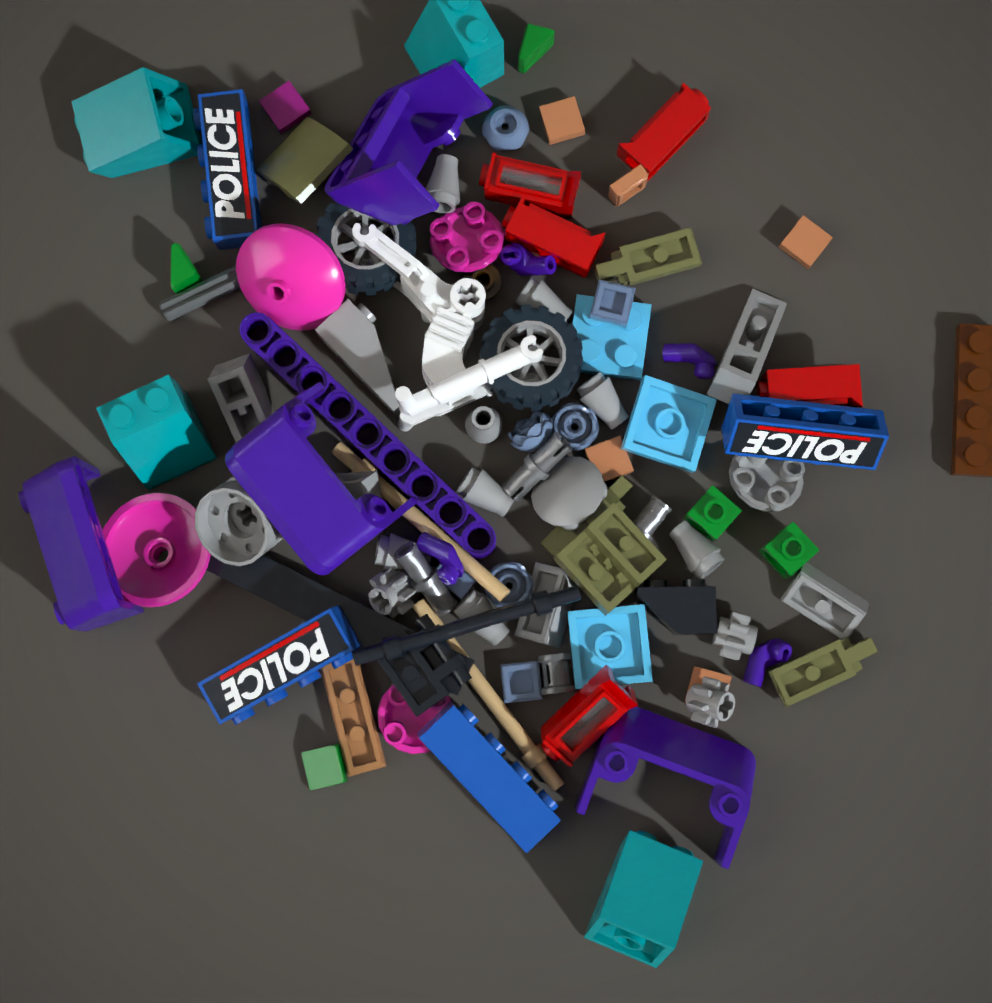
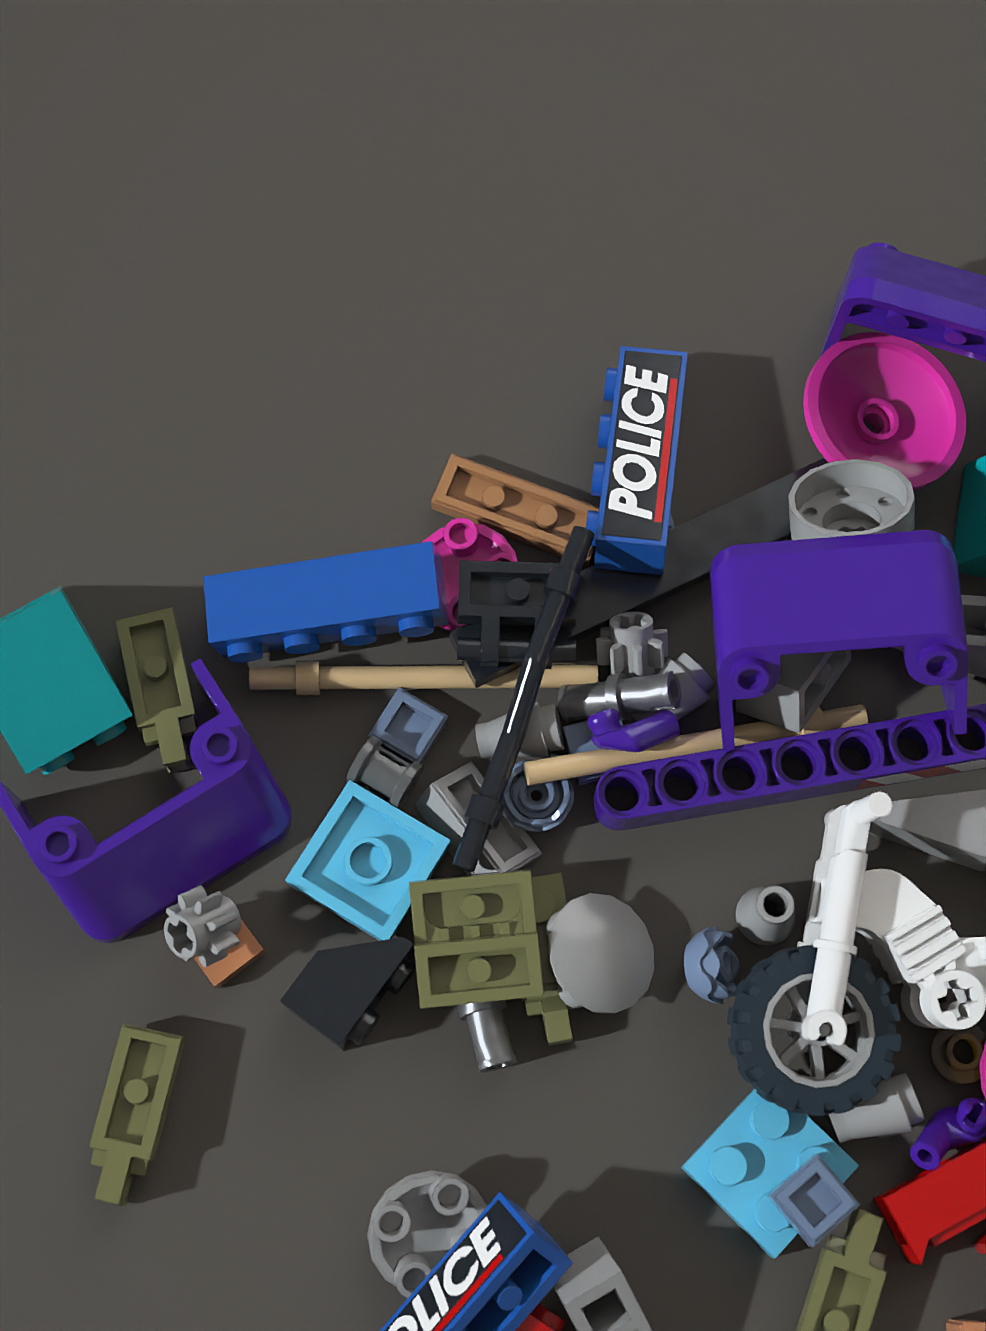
camera: 120 degrees right, 10 degrees down
(324, 767) = (483, 437): slope -> none
(483, 491) = (677, 850): light grey cone -> none
(536, 467) = (662, 937): flat silver pin -> none
(582, 416) = (685, 1008): sand blue plate -> none
(586, 717) = (304, 764): red window -> none
(598, 834) = (159, 684): none -> olive hinge
(602, 398) = (689, 1091): light grey cone -> none
(610, 459) = (604, 1043): nougat tile -> none
(668, 424) = (595, 1154): medium azure plate -> none
(694, 354) = (668, 1261): dark purple arm -> none
(697, 551) = (405, 1064): light grey cone -> none
(712, 514) = (434, 1117): green brick -> none
(735, 635) = (259, 1027): light grey gear -> none
(764, 656) = (207, 1047): dark purple arm -> none
(788, 550) = (311, 1183): green brick -> none
(825, 601) = (213, 1187): light grey slope -> none

